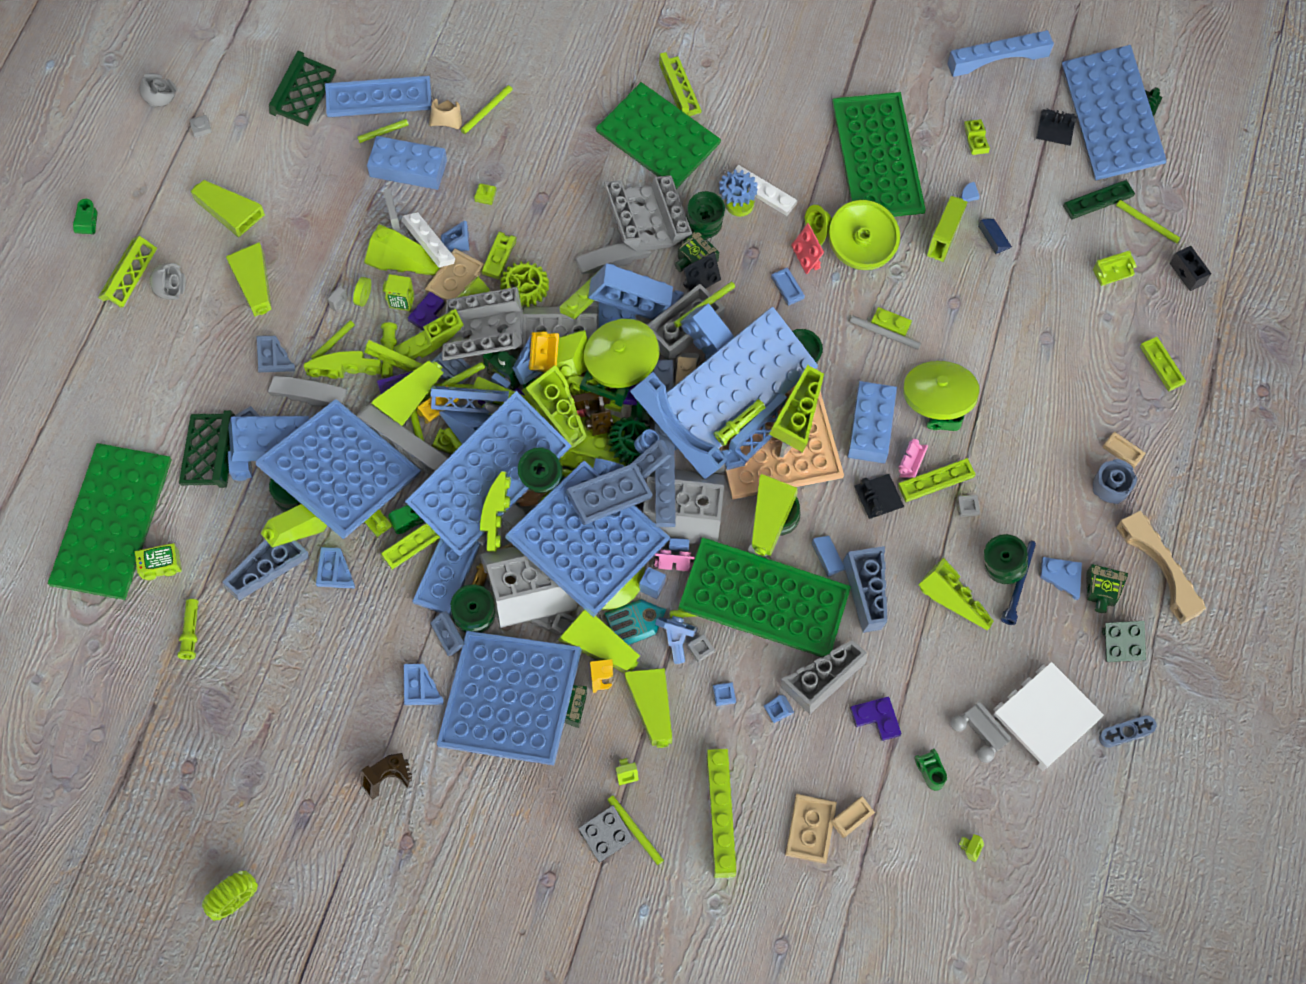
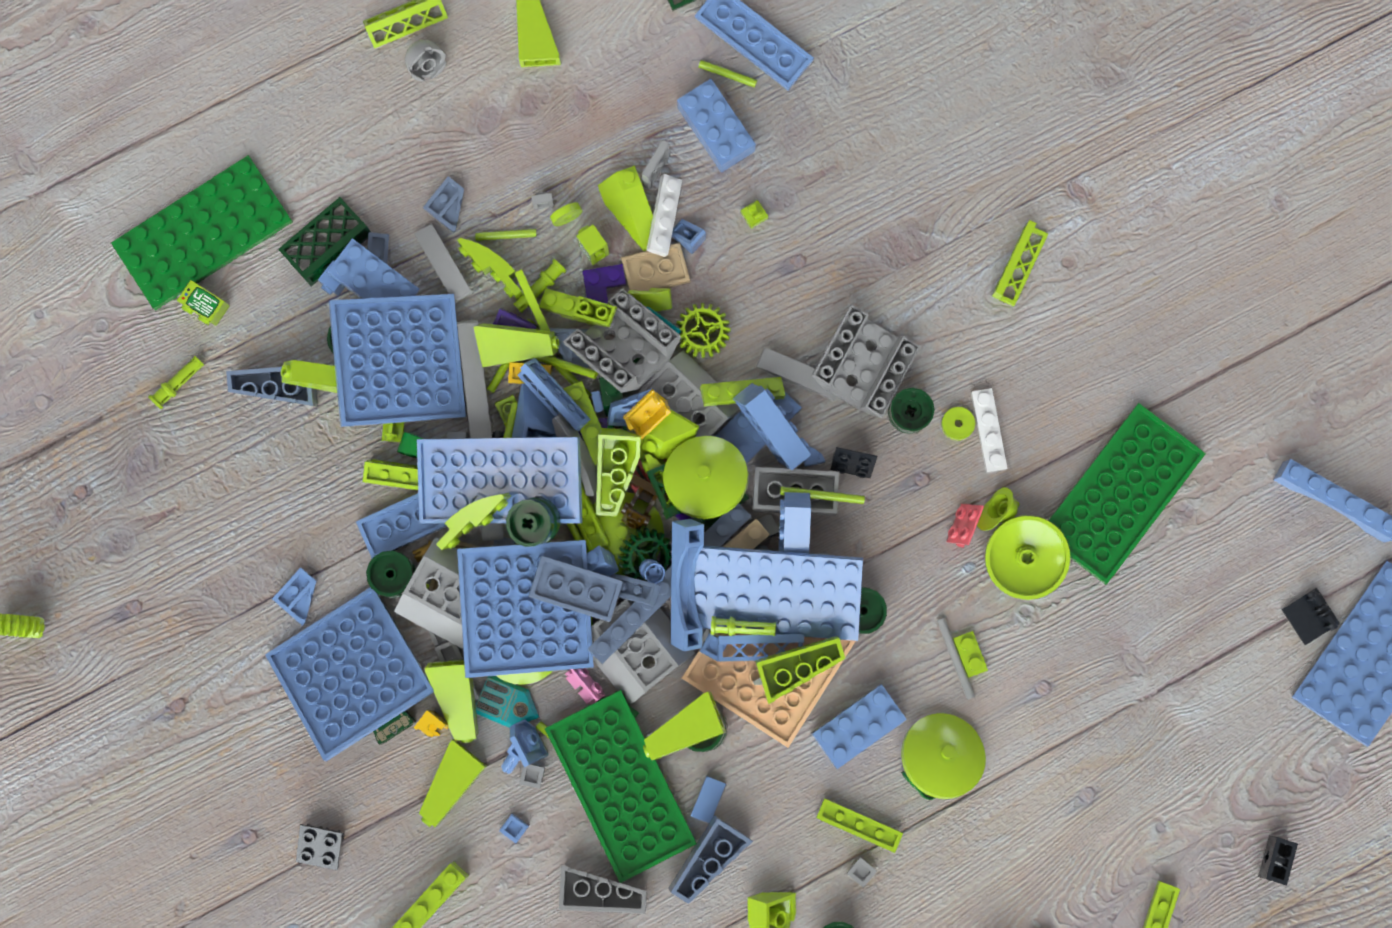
camera: 50 degrees right, 15 degrees up
(251, 274) = (494, 117): lime slope -> none
(333, 569) = (323, 437): medium blue wing -> none
(373, 776) = (192, 637): dark brown tile -> none
(445, 114) = (792, 107): tan hair -> none
(447, 633) = (356, 574): sand blue plate -> none
(467, 127) = (833, 133): lime bar -> none
(499, 255) = (709, 283): lime plate -> none
(626, 772) = (379, 816): lime tile -> none
(636, 831) = (344, 865): lime bar -> none
(652, 582) = (547, 687): medium blue brick -> none
(658, 134) = (953, 295): green plate -> none
(679, 545) = (599, 676): medium blue tile -> none
(694, 249) = (870, 436): dark green torso -> none
(738, 188) = (957, 411): medium blue gear -> none
(779, 708) = (543, 881): medium blue slope -> none
(787, 286) = (918, 538): medium blue tile -> none
(878, 496) = (799, 791): black hinge -> none
(911, 463) = (853, 792): bright pink hinge -> none
(947, 228) = (1108, 618): lime slope -> none
(970, 192) = (1165, 604): medium blue tile -> none
(976, 137) = (1229, 557): lime slope -> none
(994, 235) = (1144, 663): dark blue slope -> none
(1098, 199) = (1273, 718): dark green tile -> none
(1114, 268) = (1214, 794): lime hinge -> none
(1146, 220) = (1294, 780): lime bar -> none

